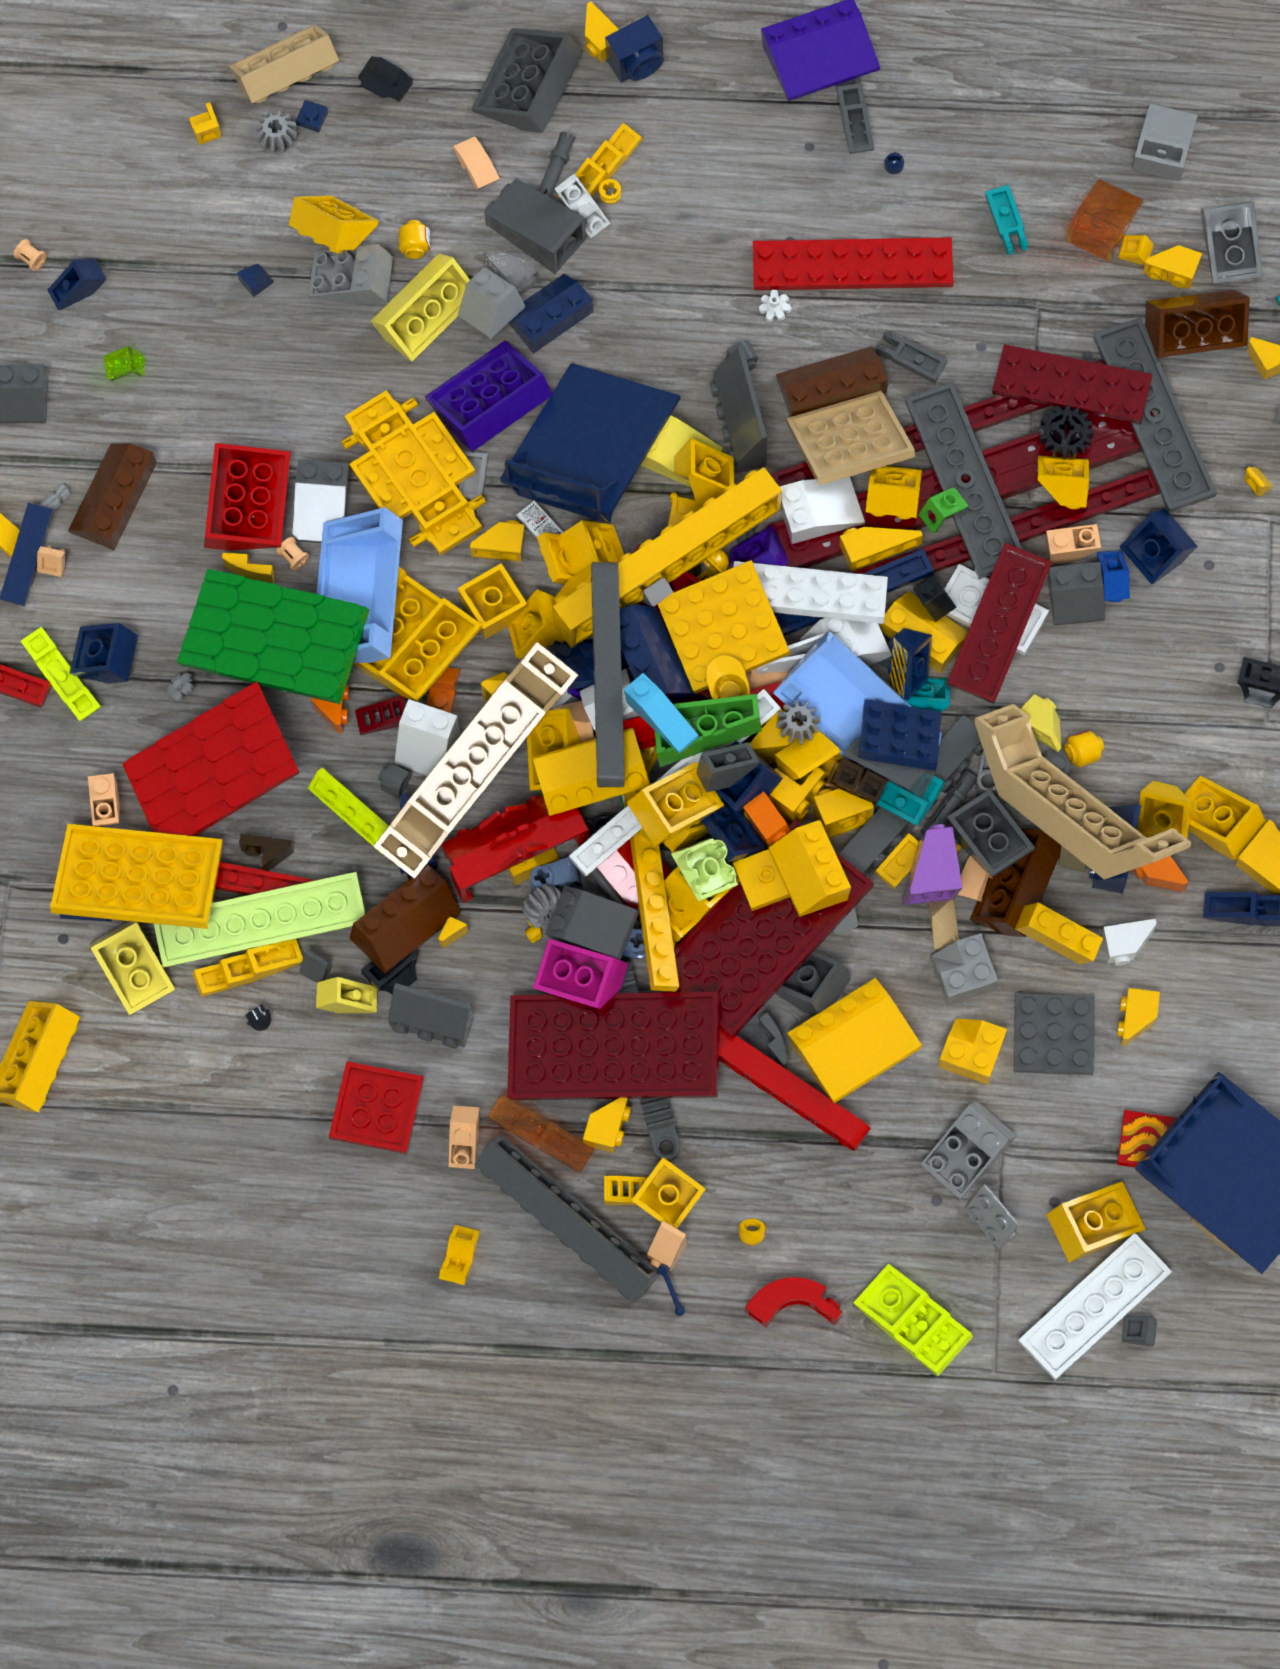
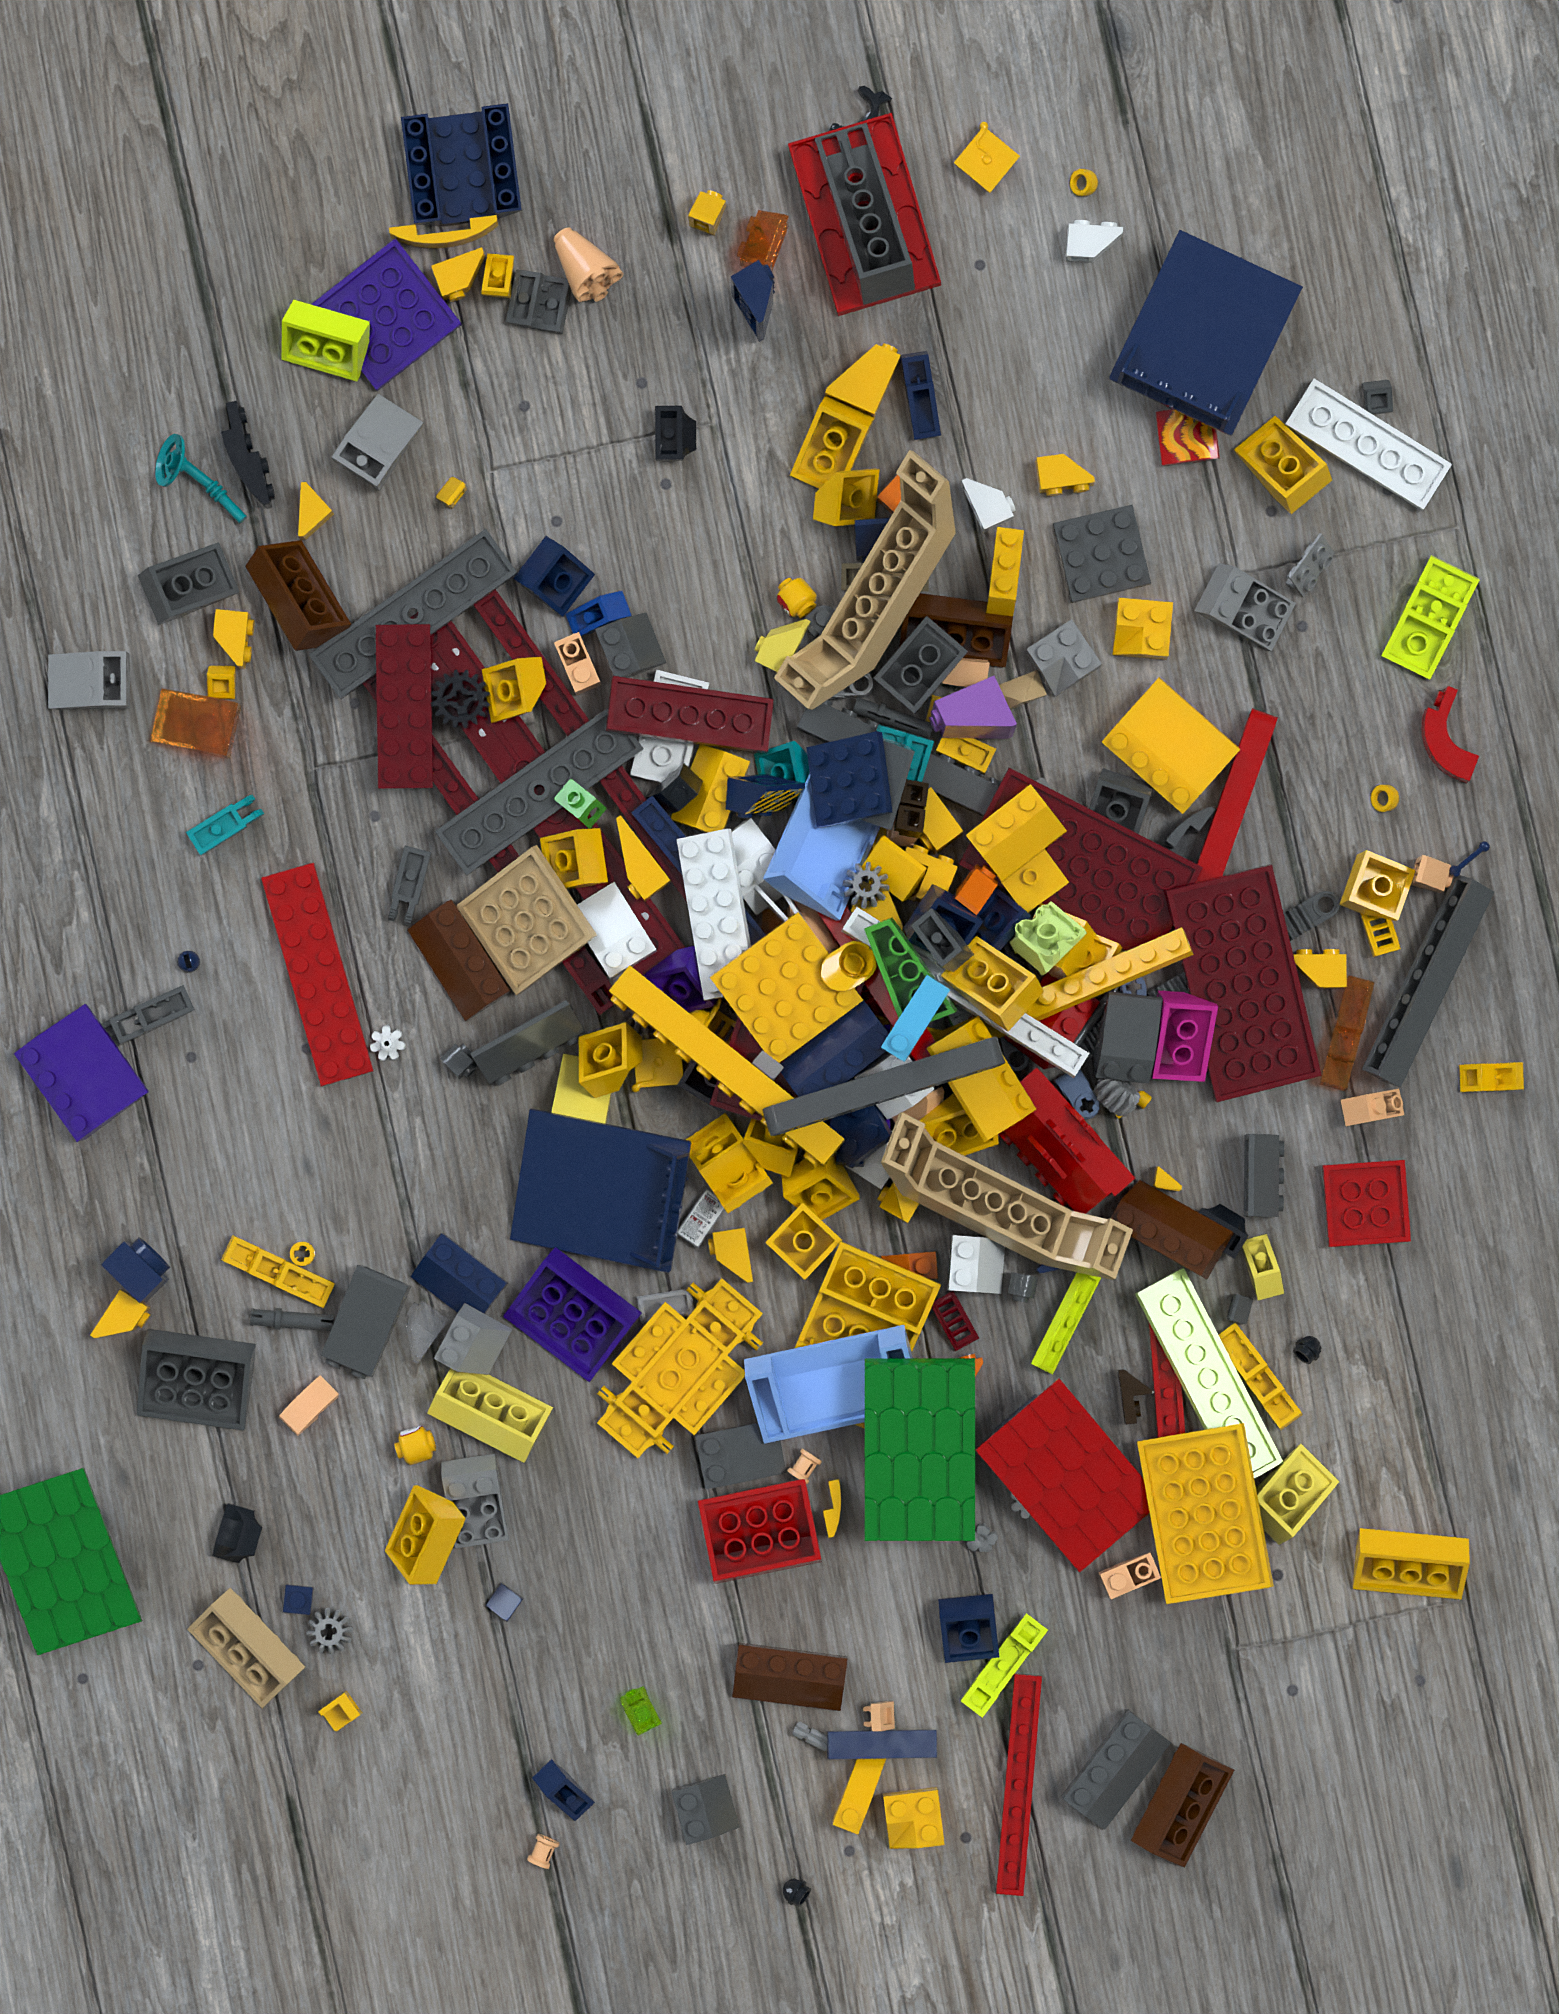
camera: 105 degrees left, 15 degrees up
(579, 200) = (334, 1276): white slope -> none

